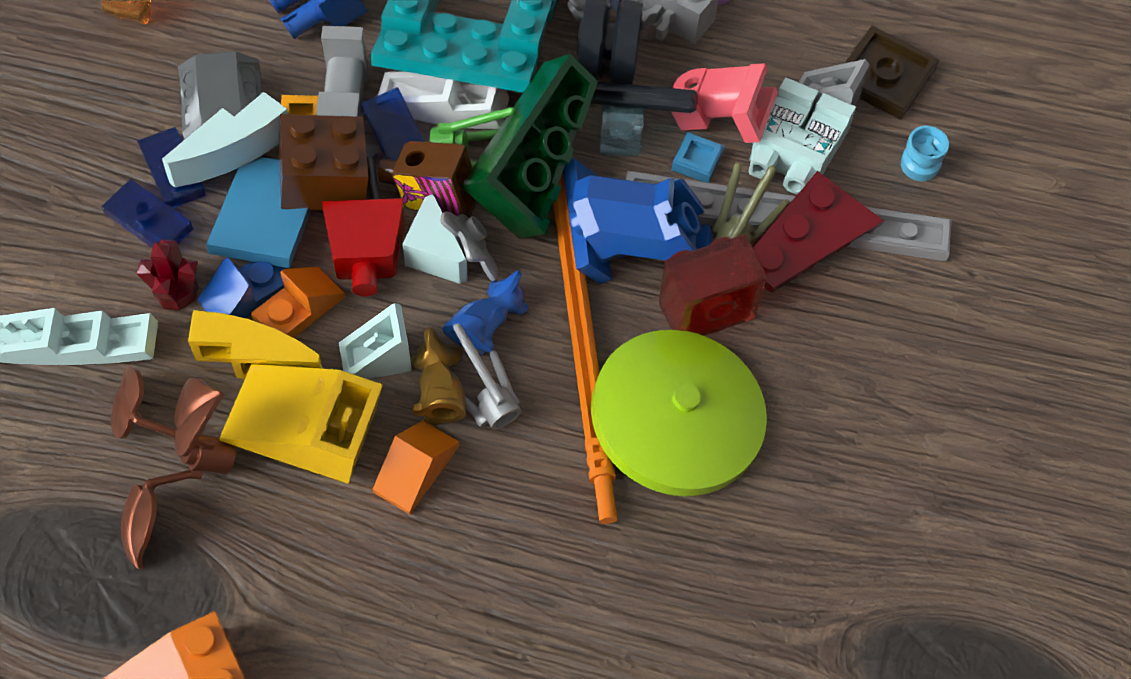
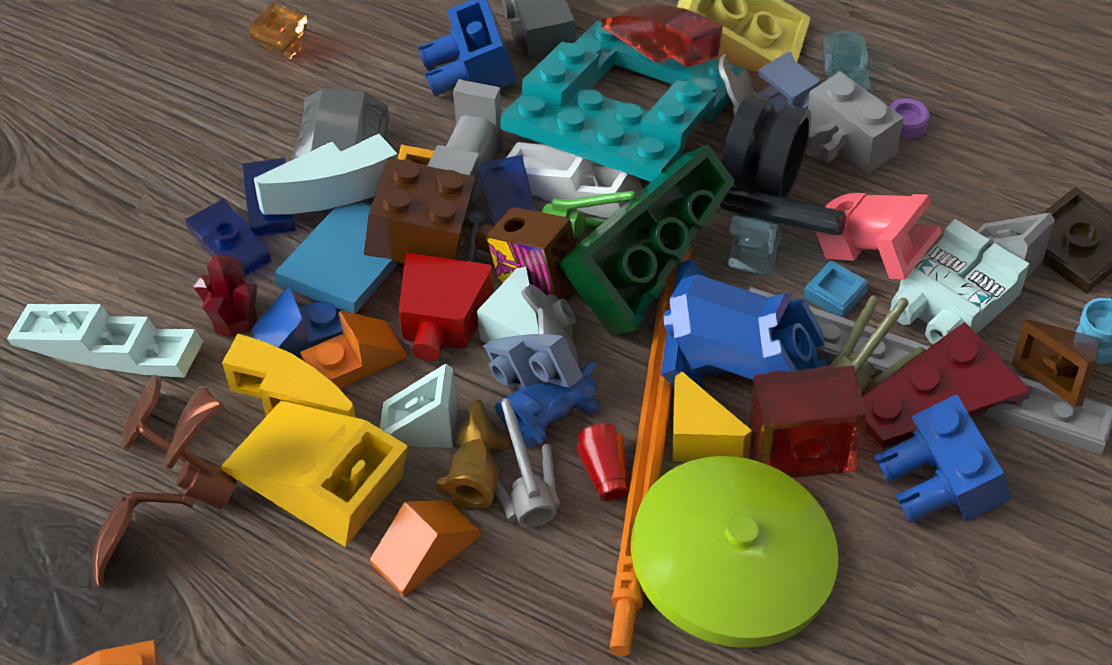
camera: 20 degrees right, 10 degrees down
(462, 279) = (532, 359): none -> sand blue slope
(548, 355) = (604, 460): none -> red cone
(623, 308) = (704, 425): none -> yellow slope
(844, 293) = (963, 464): none -> blue brick
(898, 187) = (1057, 359): none -> reddish brown slope

